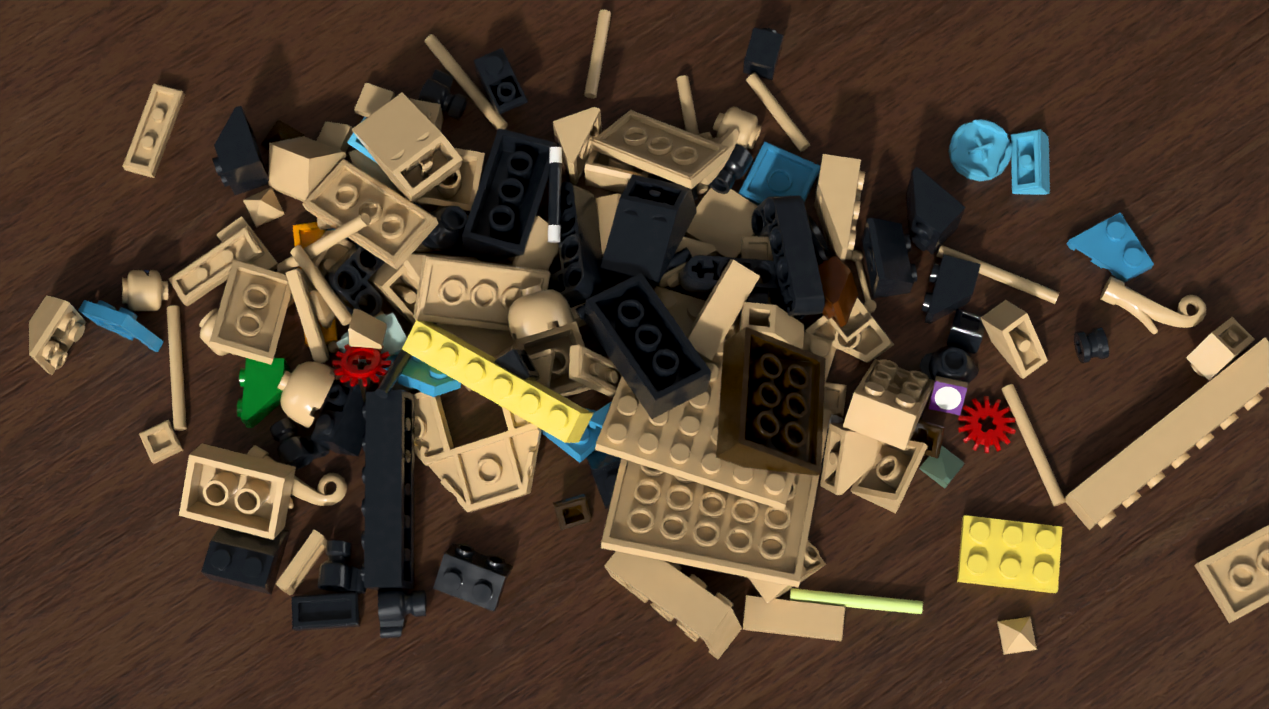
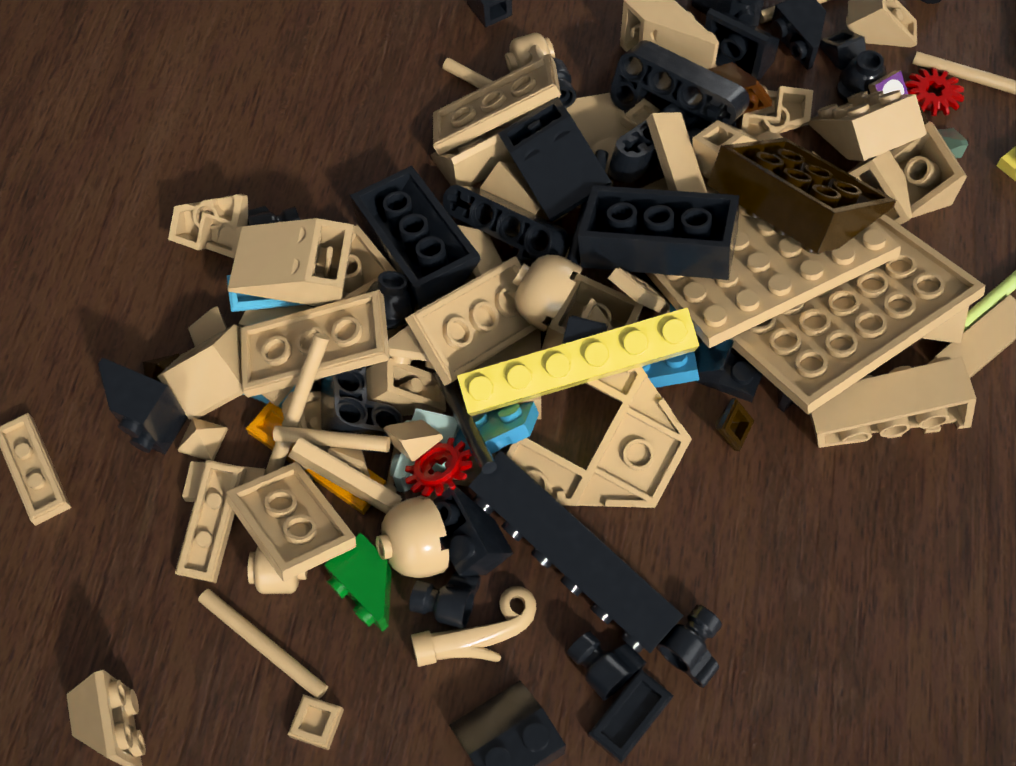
camera: 45 degrees left, 10 degrees down
(121, 322) = (165, 652): dark azure wing -> none
(144, 290) = (161, 603): tan head -> none
(237, 491) = (444, 686): tan brick -> none
(302, 563) = (567, 692): tan tile -> none
(372, 99) = (213, 277): tan tile -> none
(403, 64) = (210, 224): none -> tan slope
(465, 82) = (285, 202): tan bar -> none
(472, 576) = (720, 554): black bracket -> none
(499, 81) = (308, 172): black slope -> none
(554, 200) = (454, 202): black bar -> none
(575, 137) = (419, 149): tan slope -> none
(597, 54) = (363, 100): tan bar -> none
(778, 112) = (543, 28): tan bar -> none
(778, 174) = (593, 64): dark azure tile -> none

